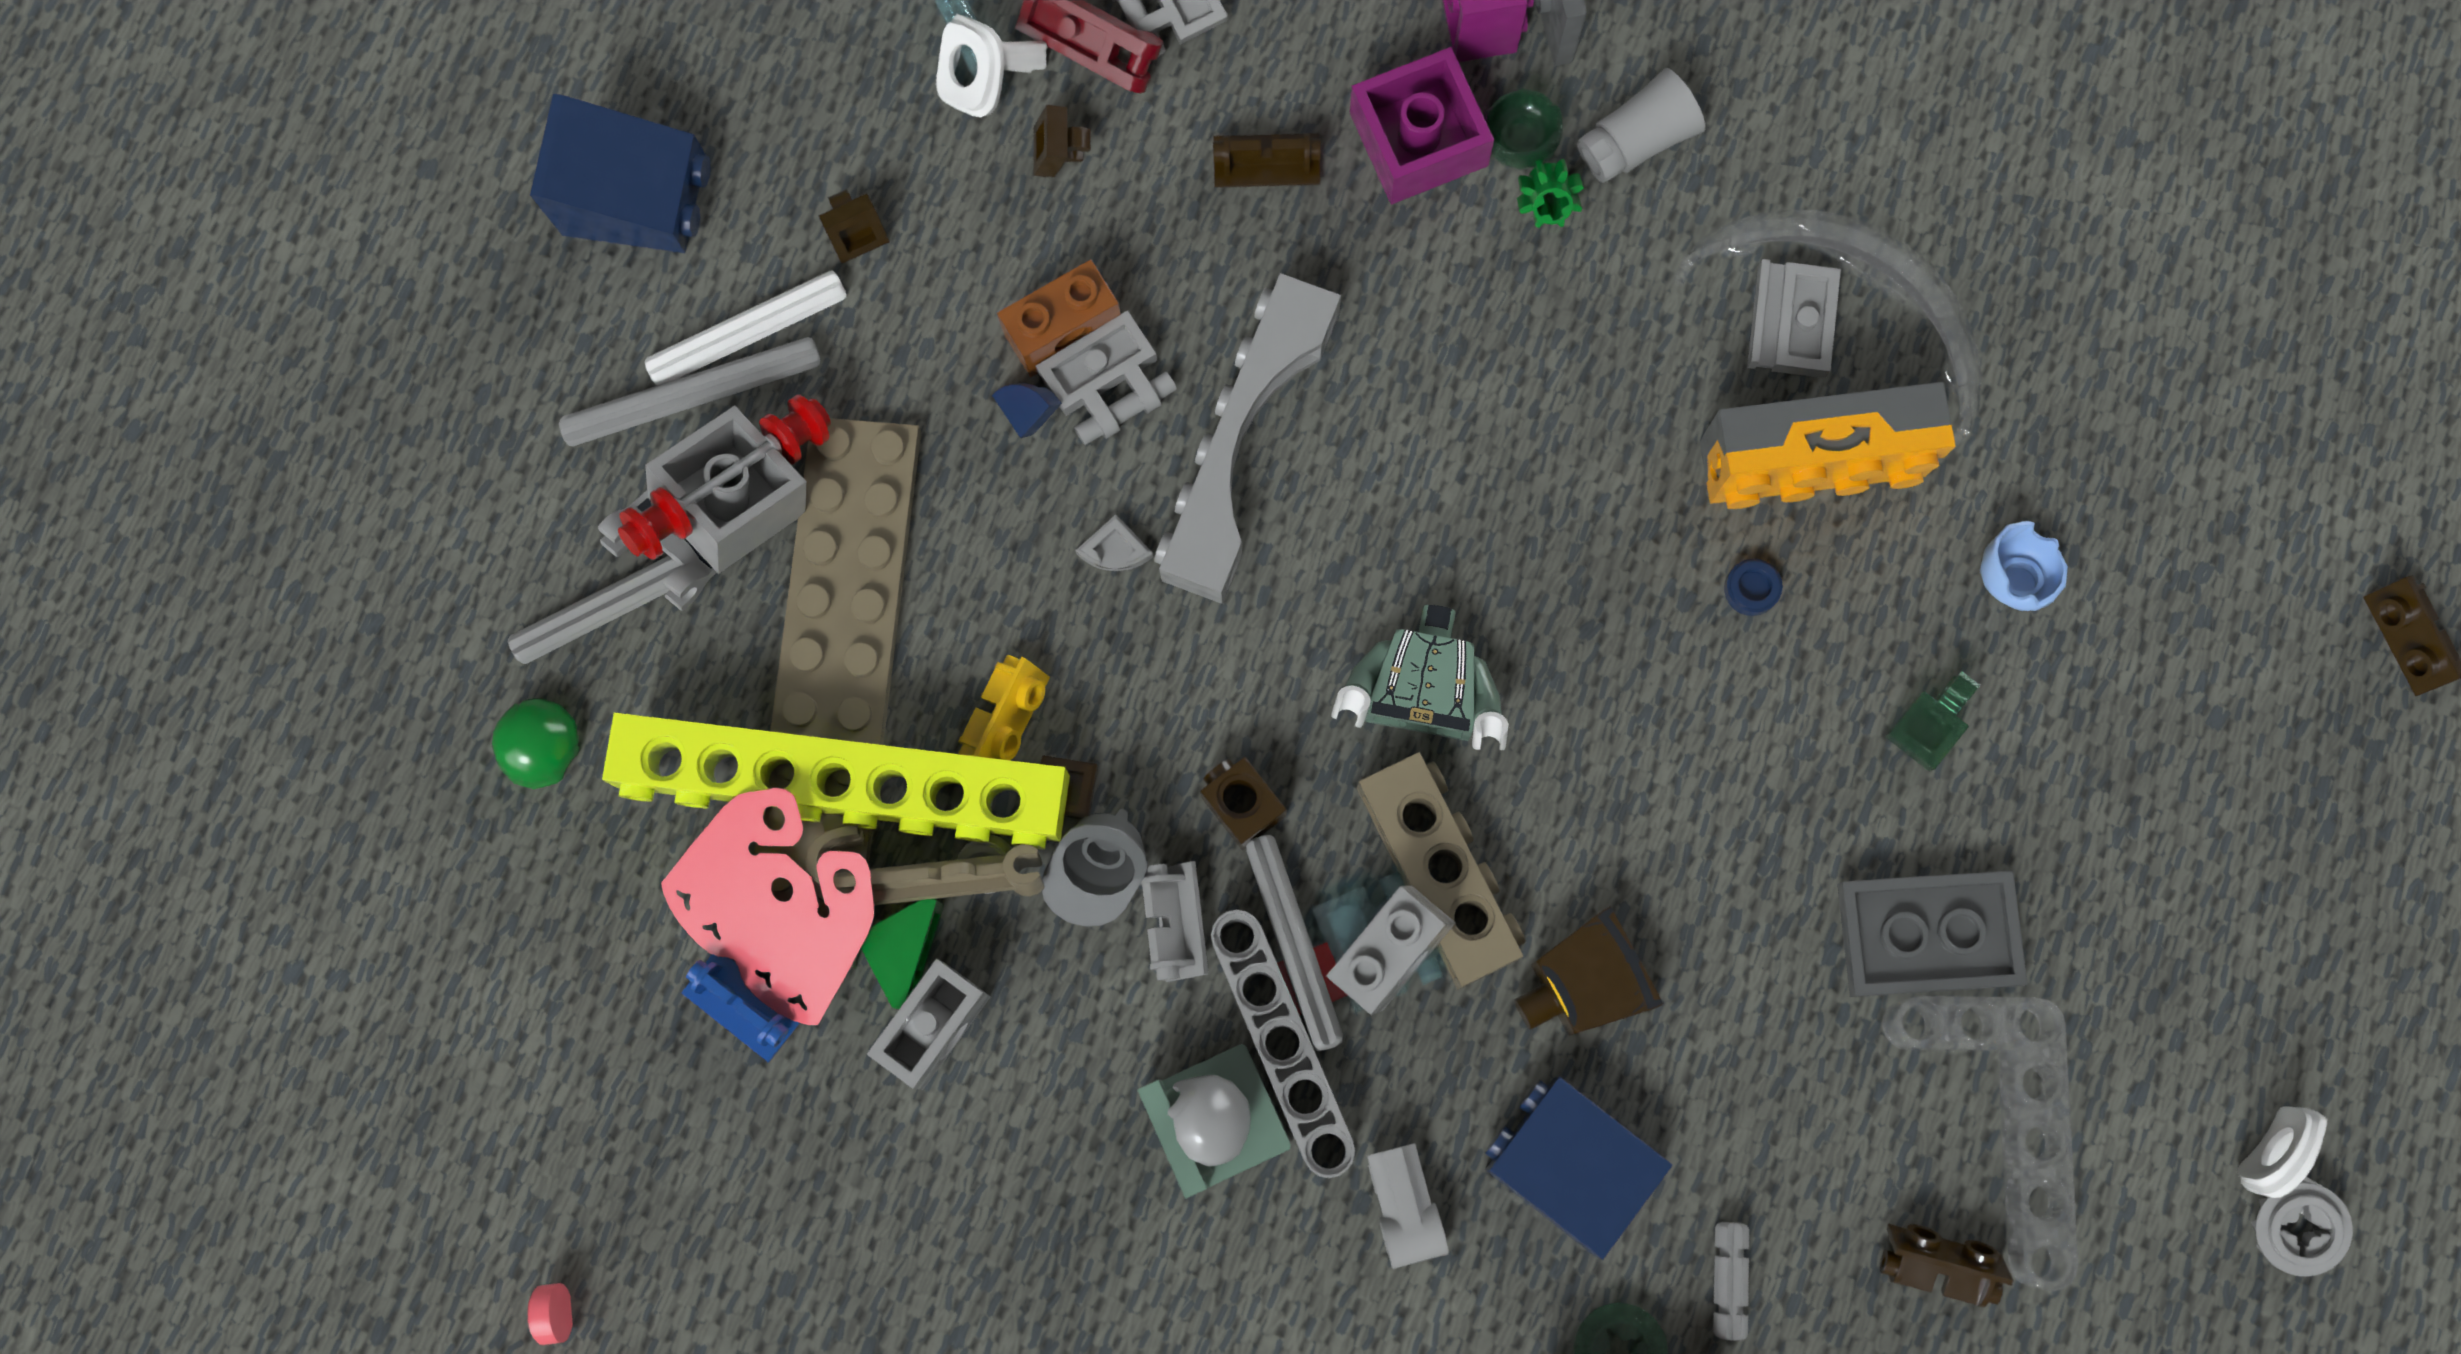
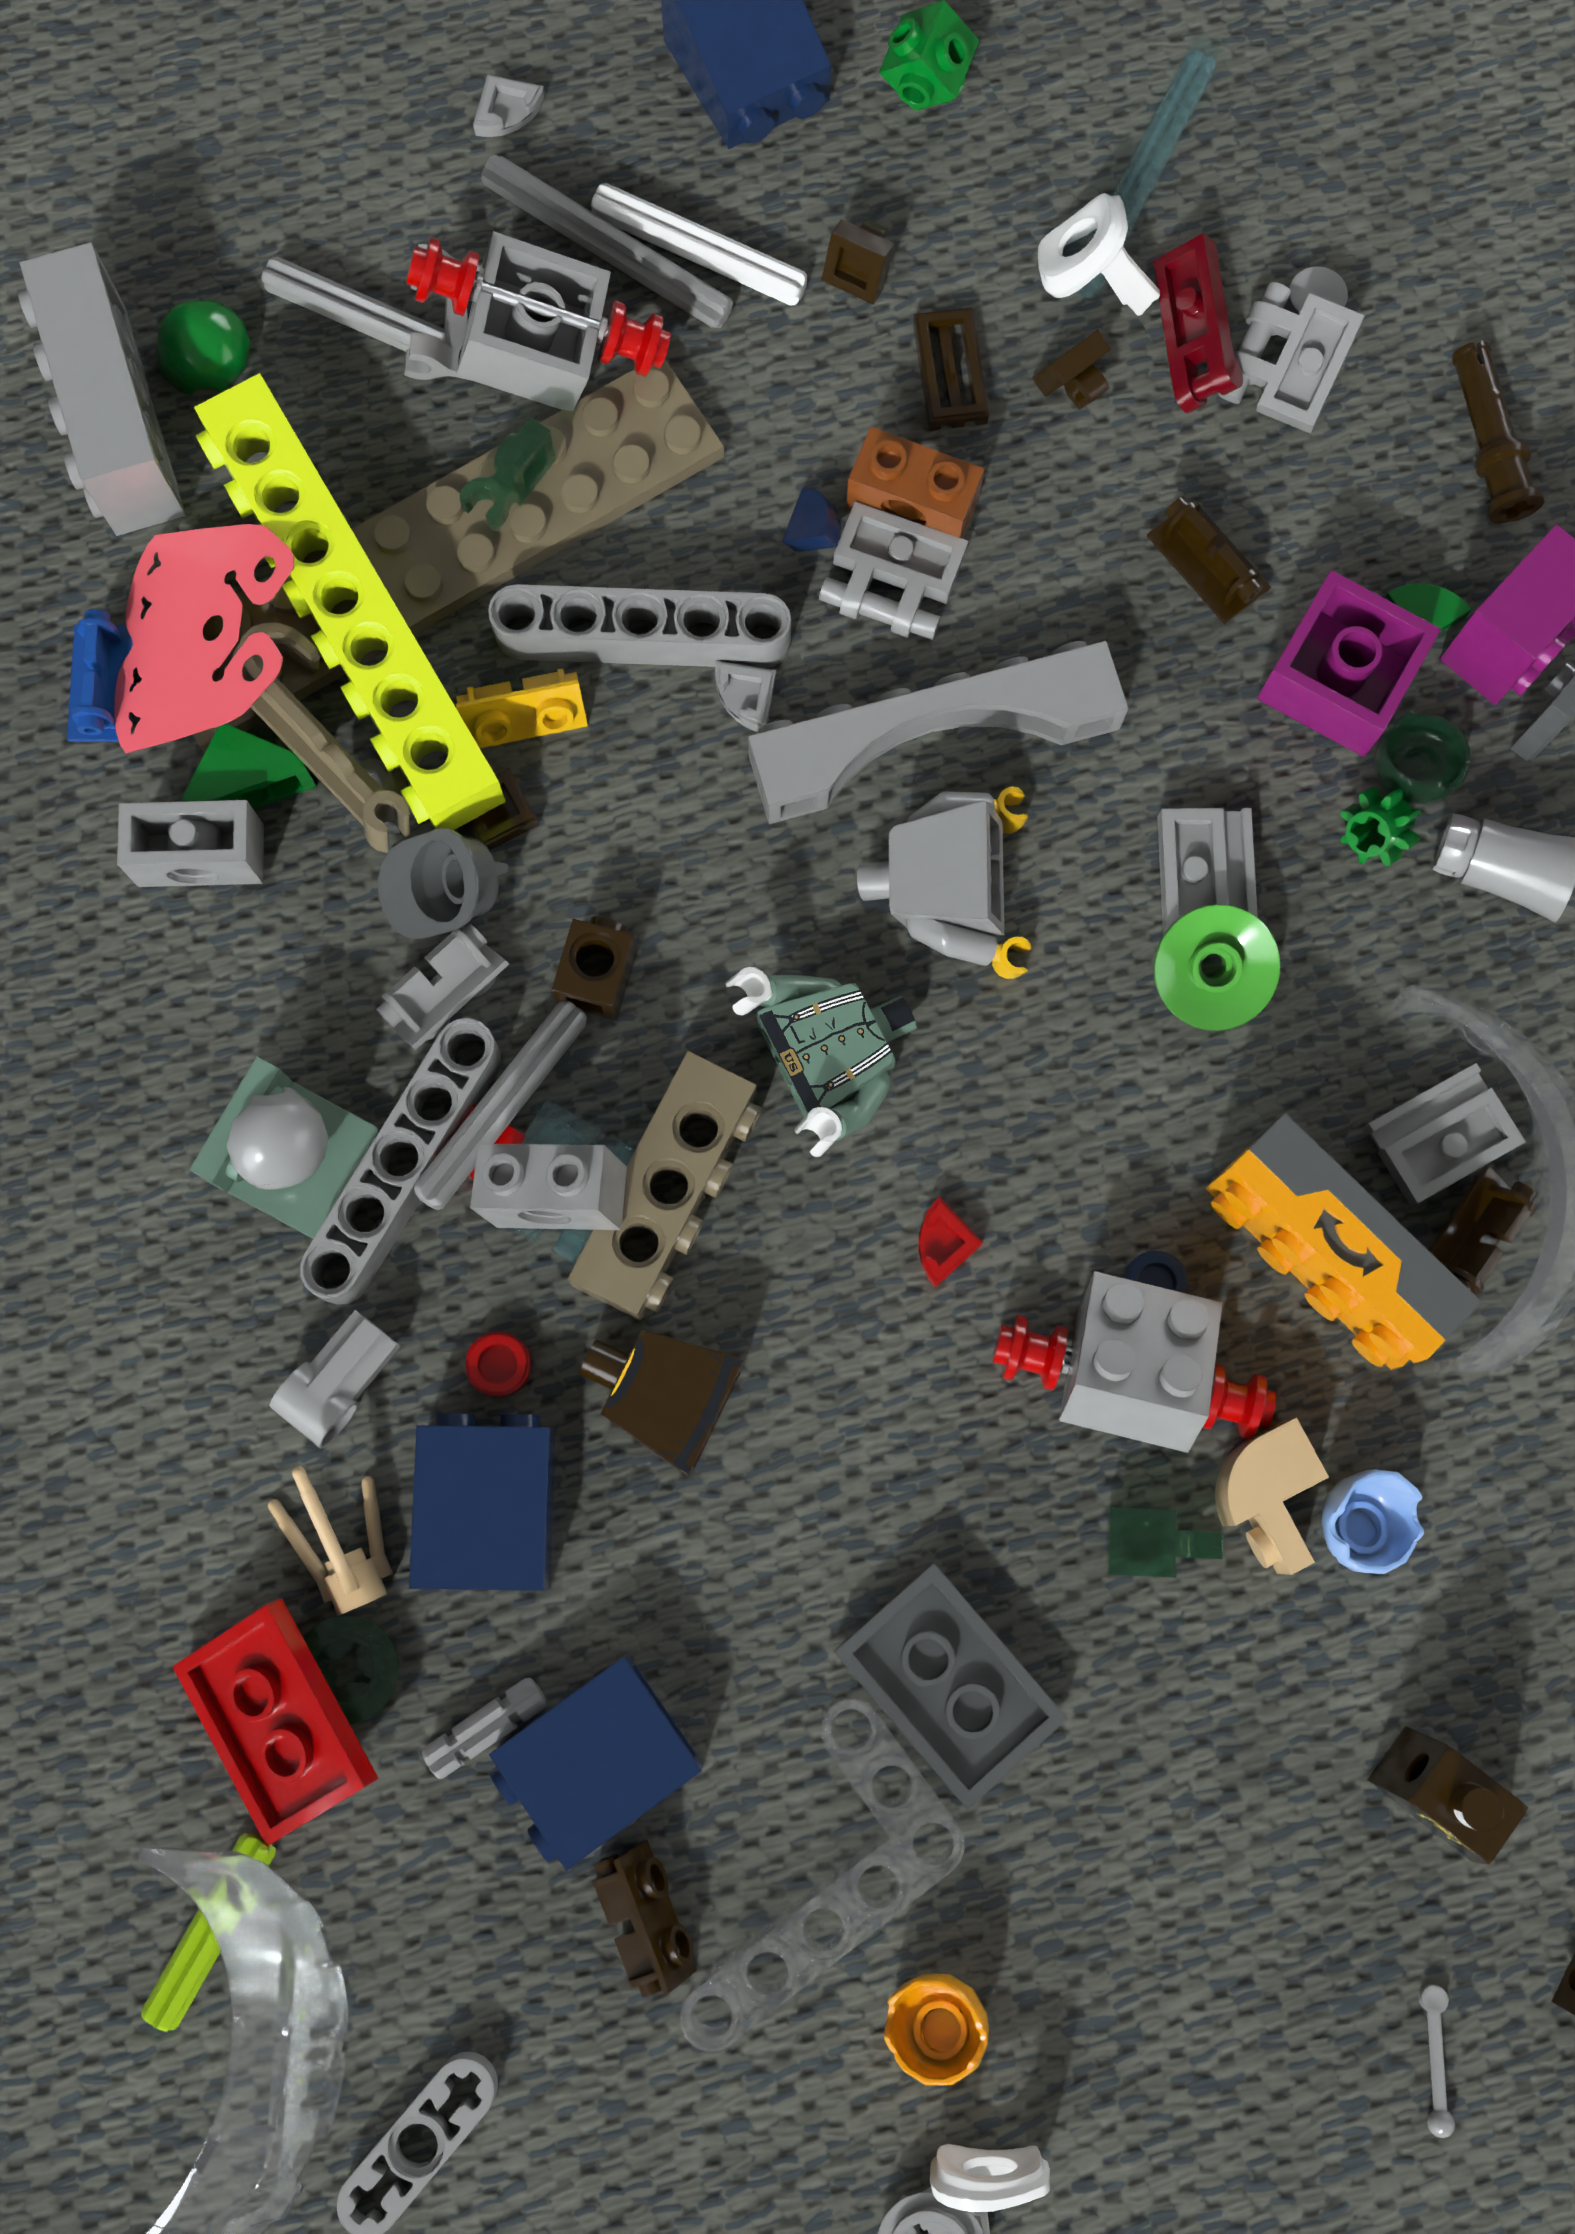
camera: 45 degrees right, 0 degrees up
(510, 834) = (99, 390): none -> light grey brick
(522, 384) = (506, 104): none -> light grey tile
(739, 62) = (929, 56): none -> green brick
(827, 578) = (518, 466): none -> clear green plate
(1018, 558) = (618, 608): none -> light grey beam
(1020, 247) = (955, 413): none -> dark brown tile
(1366, 507) = (949, 876): none -> light grey torso
(1413, 41) = (1431, 603): none -> green tile
(1477, 1083) = (498, 1364): none -> red tile
(1491, 332) = (1205, 860): none -> light grey plate
(1558, 1298) = (349, 1577): none -> tan plant
(1588, 375) = (1245, 978): none -> bright green dish
(1619, 708) = (944, 1242): none -> red tile
(1807, 641) = (1139, 1365): none -> light grey brick
(1814, 1220) = (594, 1764): none -> dark blue brick
(1870, 332) = (1482, 1218): none -> dark brown hinge
(1943, 624) = (1256, 1483): none -> tan brick
(2160, 1115) = (936, 2029): none -> light orange hair
(2249, 656) = (1449, 1795): none -> dark brown torso
(2364, 771) = (1435, 2001): none -> light grey hinge

